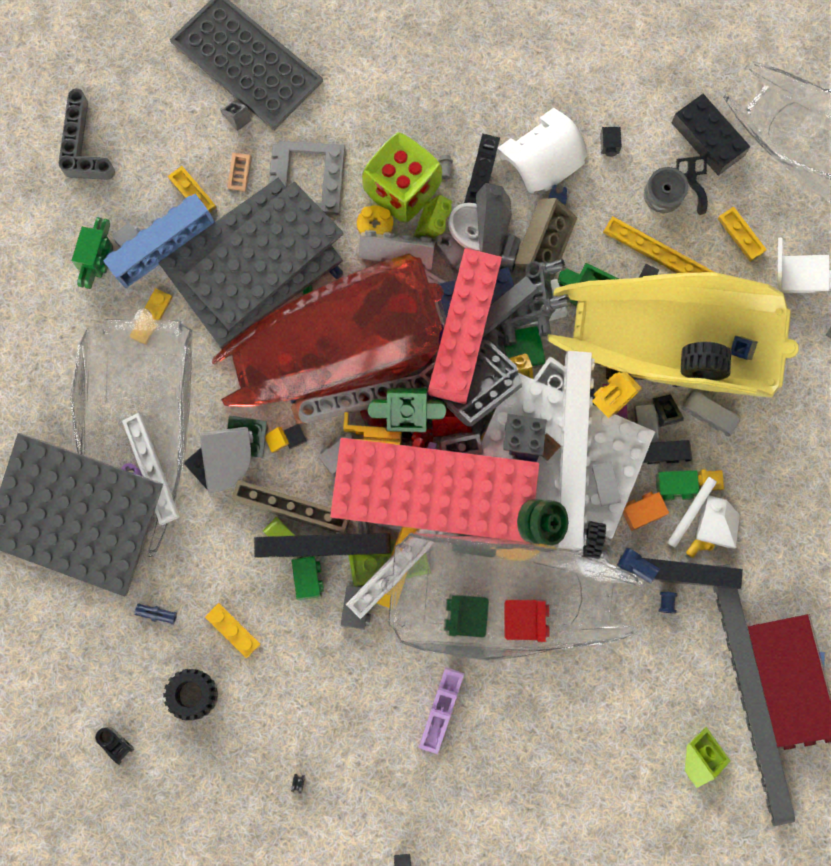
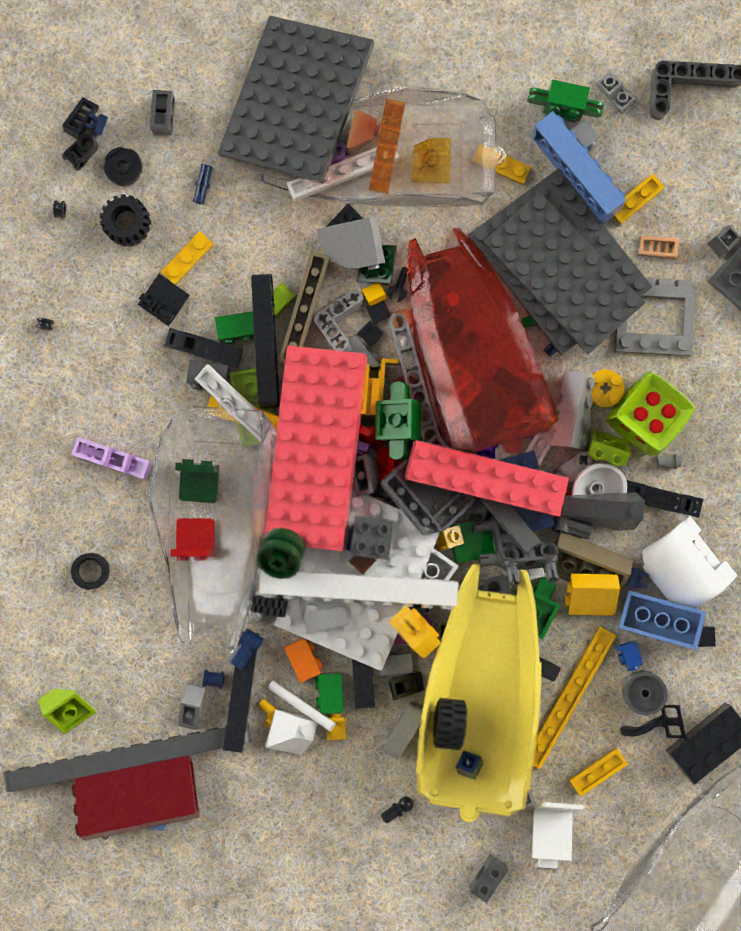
camera: 90 degrees right, 10 degrees up
(77, 654) = (162, 112): none -> dark grey brick
(83, 211) = (614, 91): none -> light grey slope
(85, 724) = (98, 124): none -> dark blue tile
(90, 748) = (70, 121): none -> black slope
(103, 413) = (387, 146): none -> clear orange beam
(110, 448) = (361, 132): none -> medium nougat slope
(121, 695) = (112, 166): none -> black plate
(144, 379) = (432, 161): none -> clear yellow slope
(174, 767) = (59, 209): none -> black bush
(268, 415) = (399, 285): none -> black bar
(275, 655) = (163, 299): none -> black hinge
(301, 480) = (333, 318): none -> light grey beam
(316, 444) = (370, 334): none -> black tile
(327, 612) = (203, 347): none -> black slope
(565, 319) = (500, 580): none -> dark grey brick
(574, 234) = (592, 594): none -> yellow brick
(575, 732) = (76, 566): none -> black tyre
(597, 170) = (662, 620): none -> medium blue brick
(630, 203) = (629, 655): none -> blue brick
(697, 624) = (191, 706): none -> light grey slope
(783, 414) = (405, 804): none -> black axle

